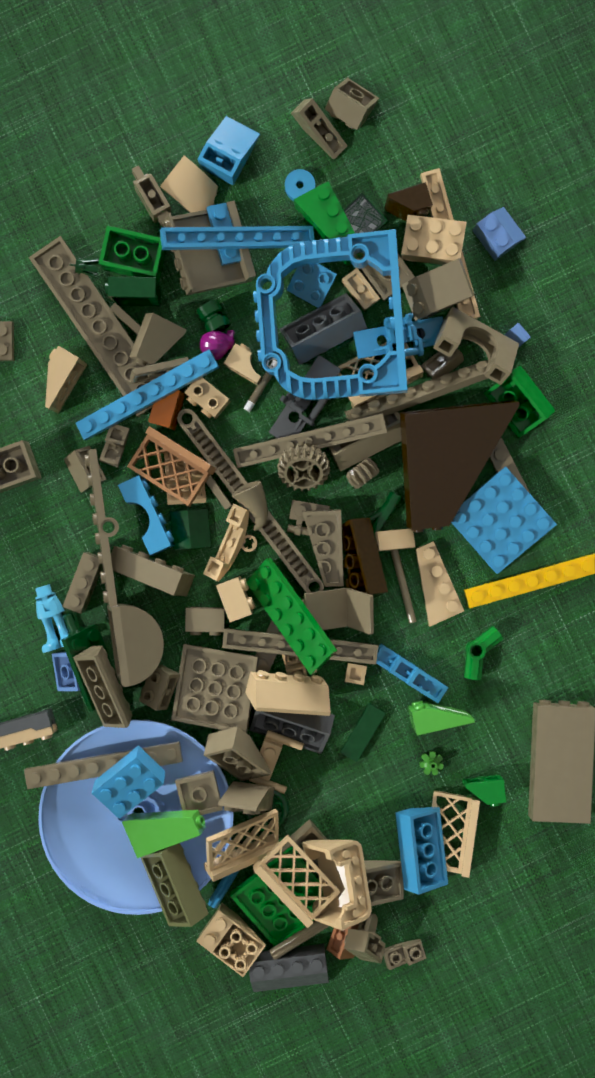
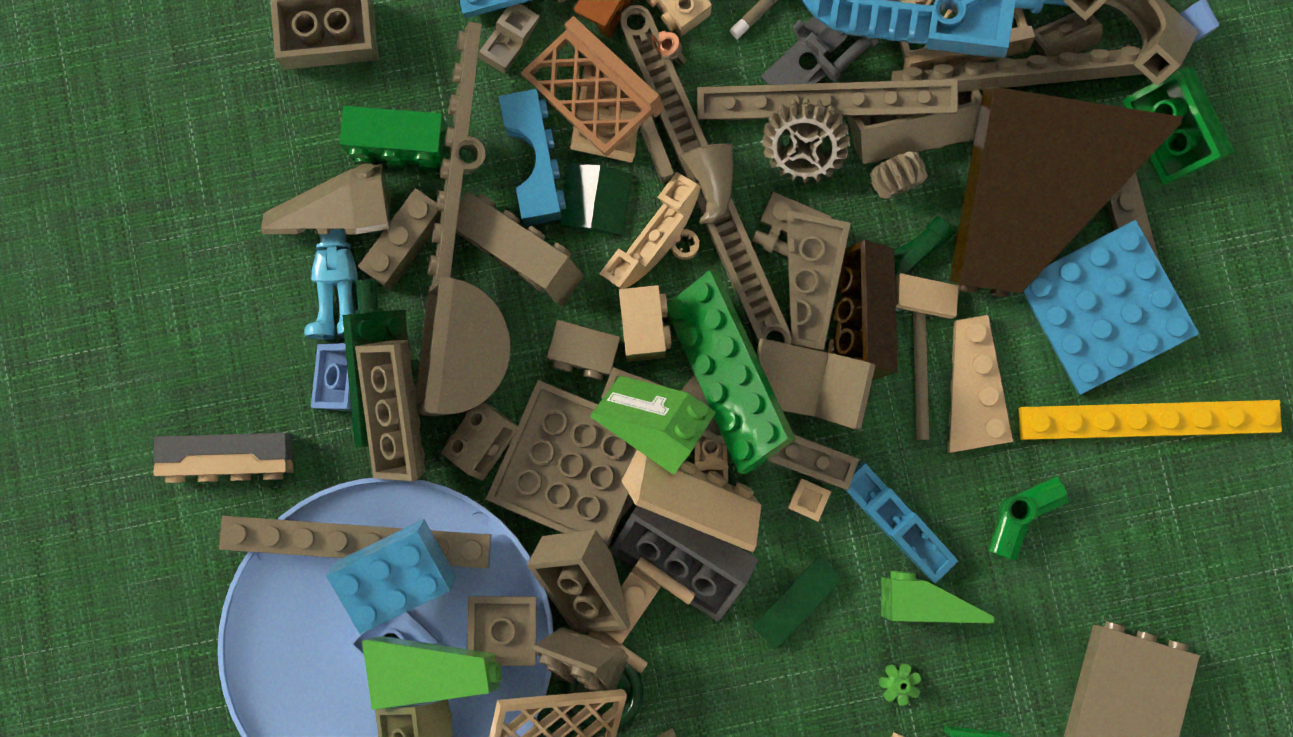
camera: 15 degrees right, 5 degrees down
(47, 569) = (351, 201): none -> dark tan wedge
(62, 525) = (394, 137): none -> green brick
(78, 470) = (441, 57): dark tan panel -> none
(209, 430) = (669, 47): none -> pearl gold piece
(254, 656) = (654, 420): none -> bright green slope

